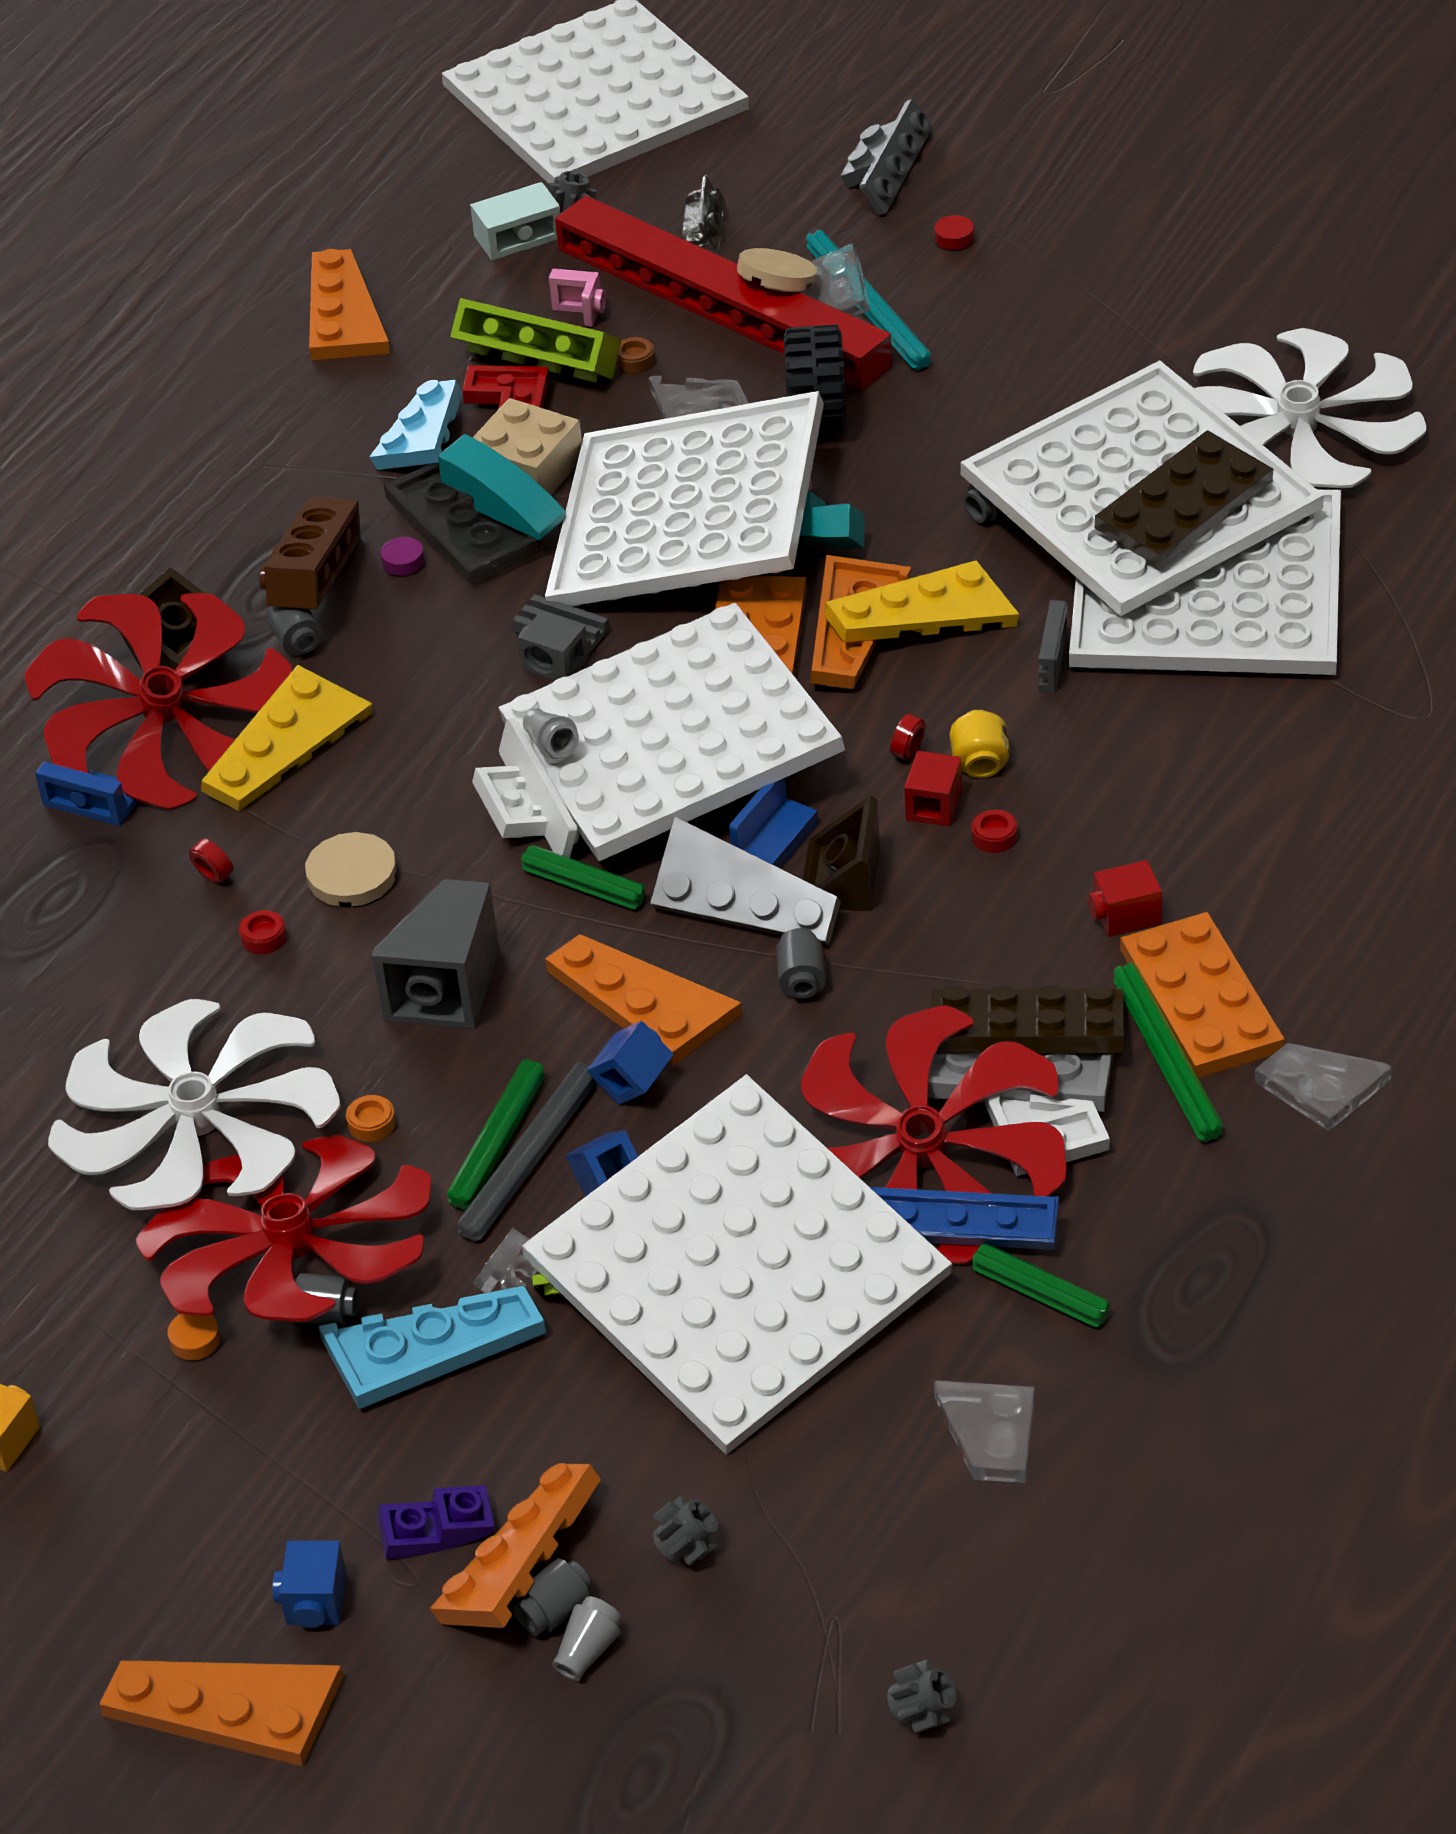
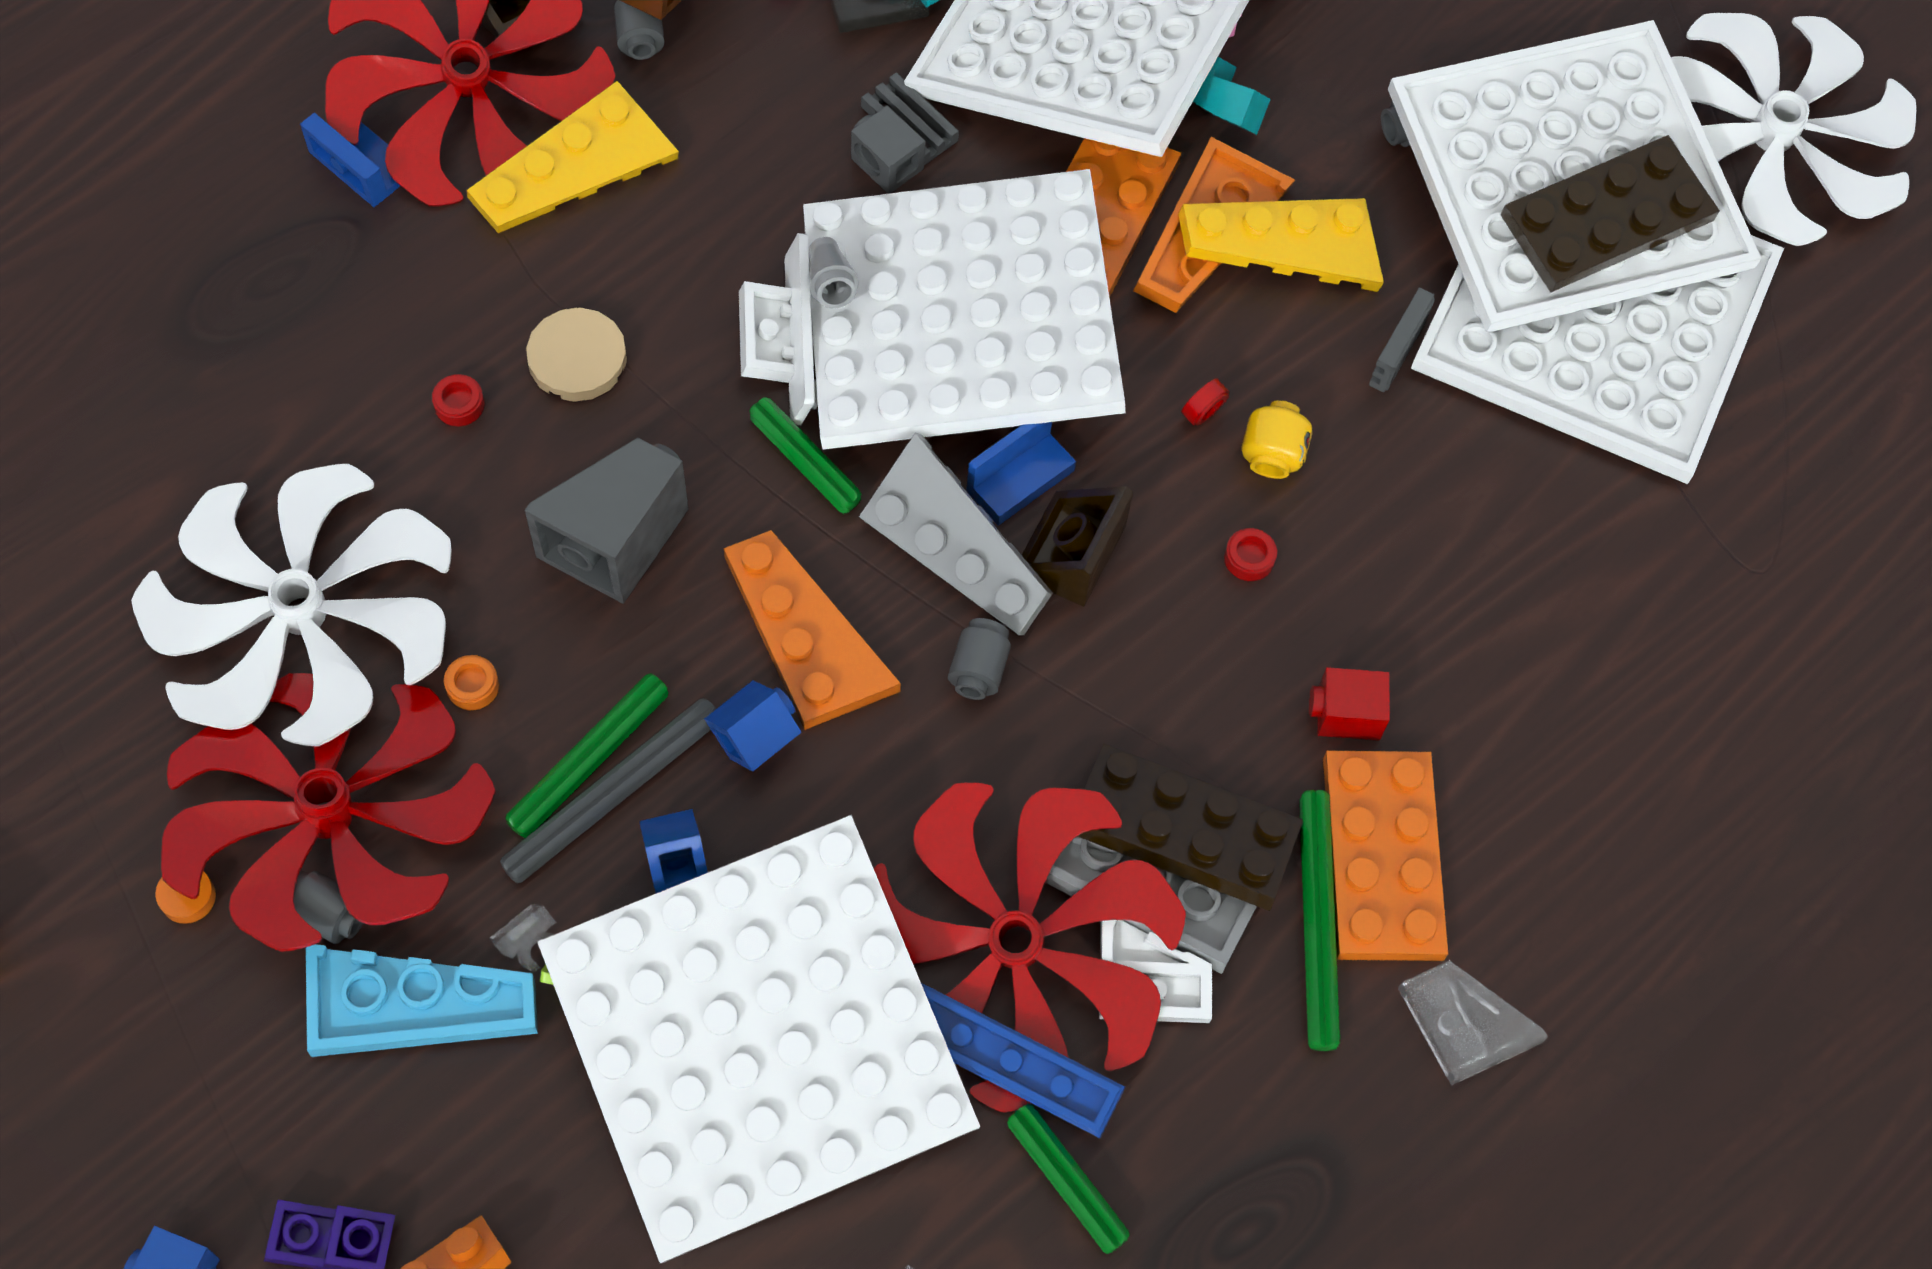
camera: 10 degrees right, 20 degrees up
(210, 861) = (437, 295): red tile -> none
(933, 788) = (1206, 480): red brick -> none

